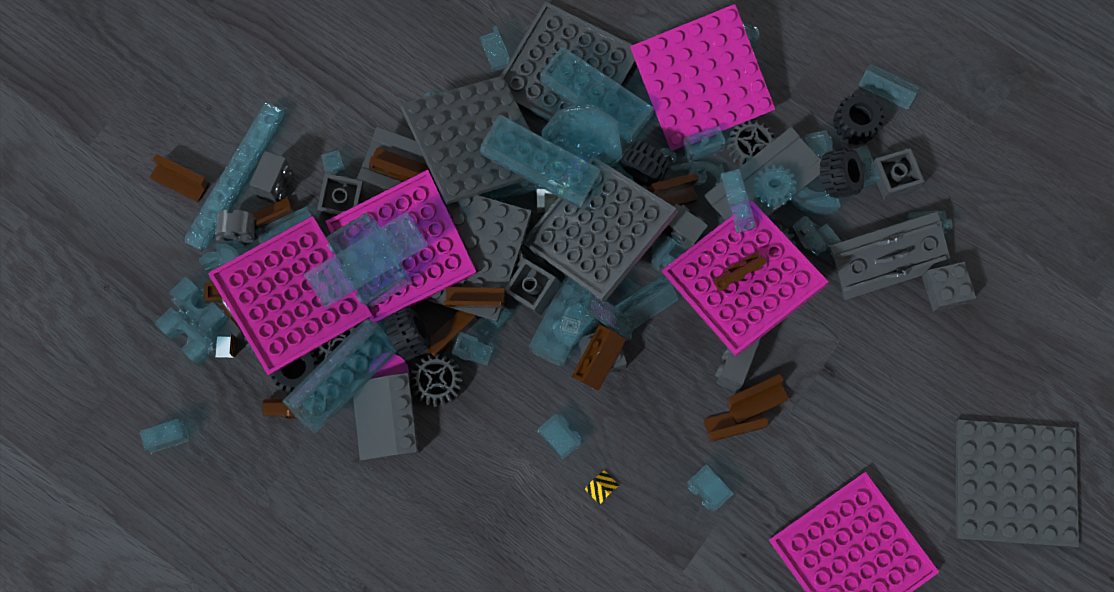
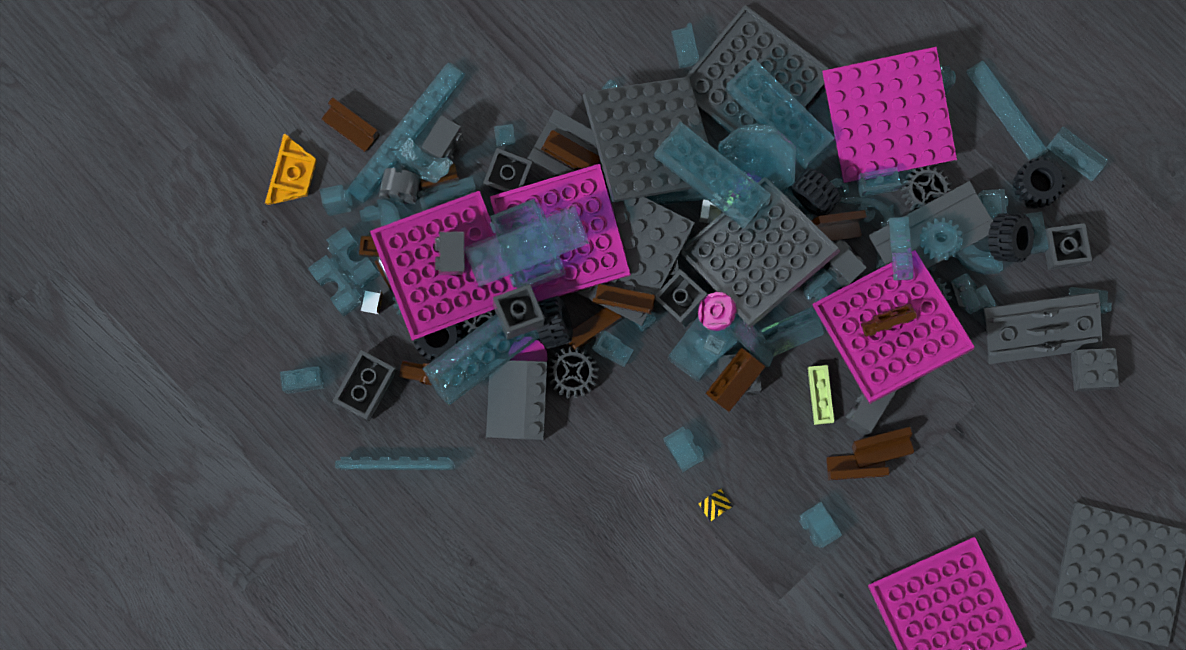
camera: 10 degrees right, 5 degrees up
(126, 234) = (291, 173): none -> light orange wing
(173, 252) = (336, 200): none -> clear light blue brick
(228, 430) = (365, 385): none -> dark grey brick
(249, 200) = (419, 162): none -> clear light blue arch
(262, 504) = (386, 463): none -> clear light blue plate
(292, 281) = (450, 253): none -> dark grey brick
(369, 326) = (518, 311): none -> dark grey brick
(568, 292) = (717, 311): none -> dark pink tile
(686, 359) = (820, 395): none -> yellowish green plate
(813, 58) = (1006, 111): none -> clear light blue plate

